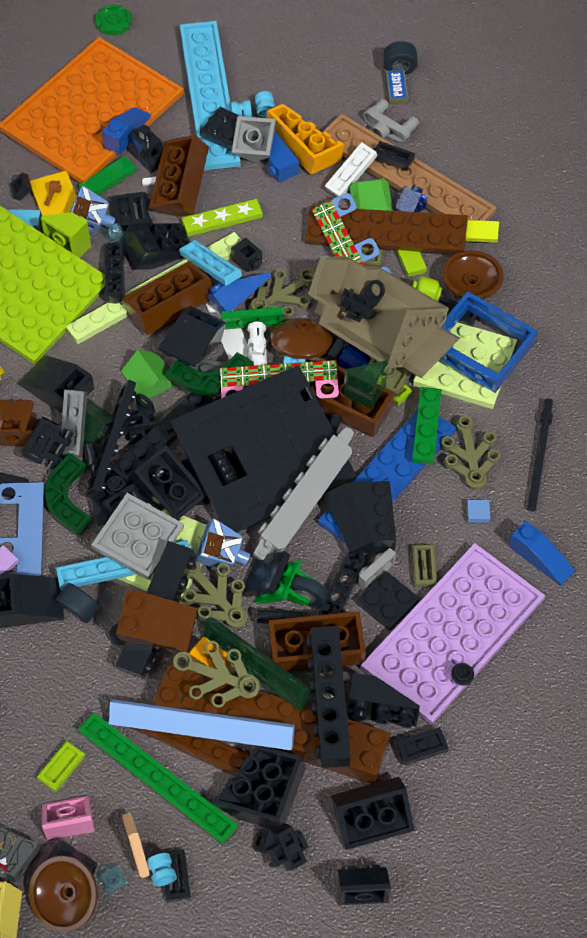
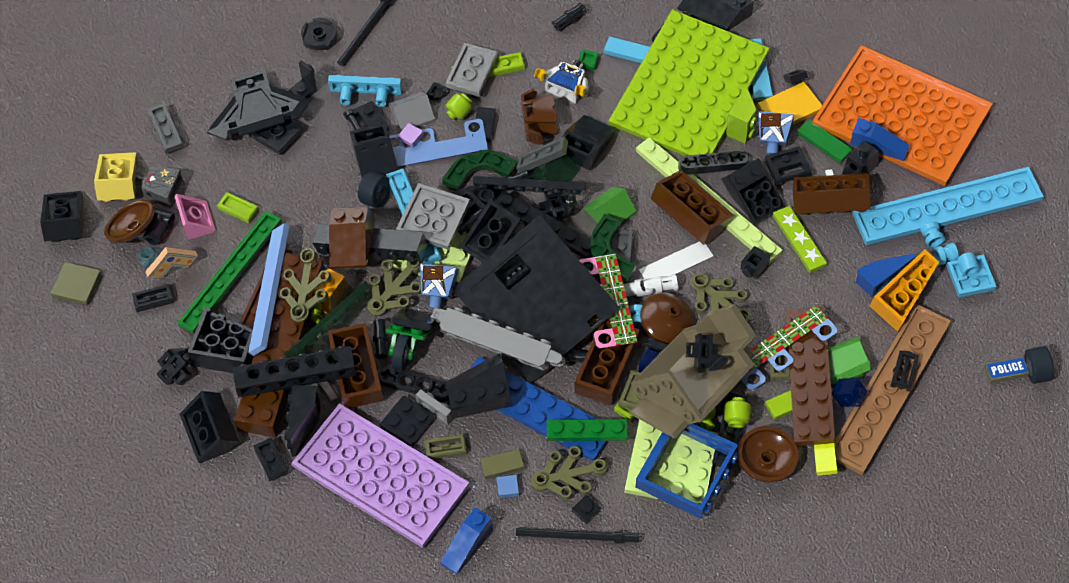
camera: 85 degrees right, 0 degrees up
(42, 439) = (519, 135): black plate -> none
(54, 186) = (797, 99): dark orange hand -> none
(113, 20) = (1023, 114): green tile -> none
(115, 232) = (756, 153): clear light blue plate -> none
(161, 869) = (154, 279): medium azure wheel -> none
(193, 336) = (646, 228): black slope -> none
(210, 262) = (731, 229): medium azure tile -> none
(221, 128) = (901, 223): black plate -> none
(230, 296) = (707, 255): blue slope -> none
(243, 318) = (683, 276): green tile -> none
(253, 138) = (890, 242): light grey slope -> none
(293, 90) = (970, 275): none -> medium azure plate
(351, 170) = (876, 336): white plate -> none
(363, 885) = (144, 423): black slope -> none
(366, 383) = (604, 364): clear green slope -> none
(386, 127) = (944, 361): light grey connector -> none
(451, 513) = (502, 464): none -> olive tile
(462, 674) = (334, 480): black plate -> none
(511, 443) = (586, 509): none -> black plate

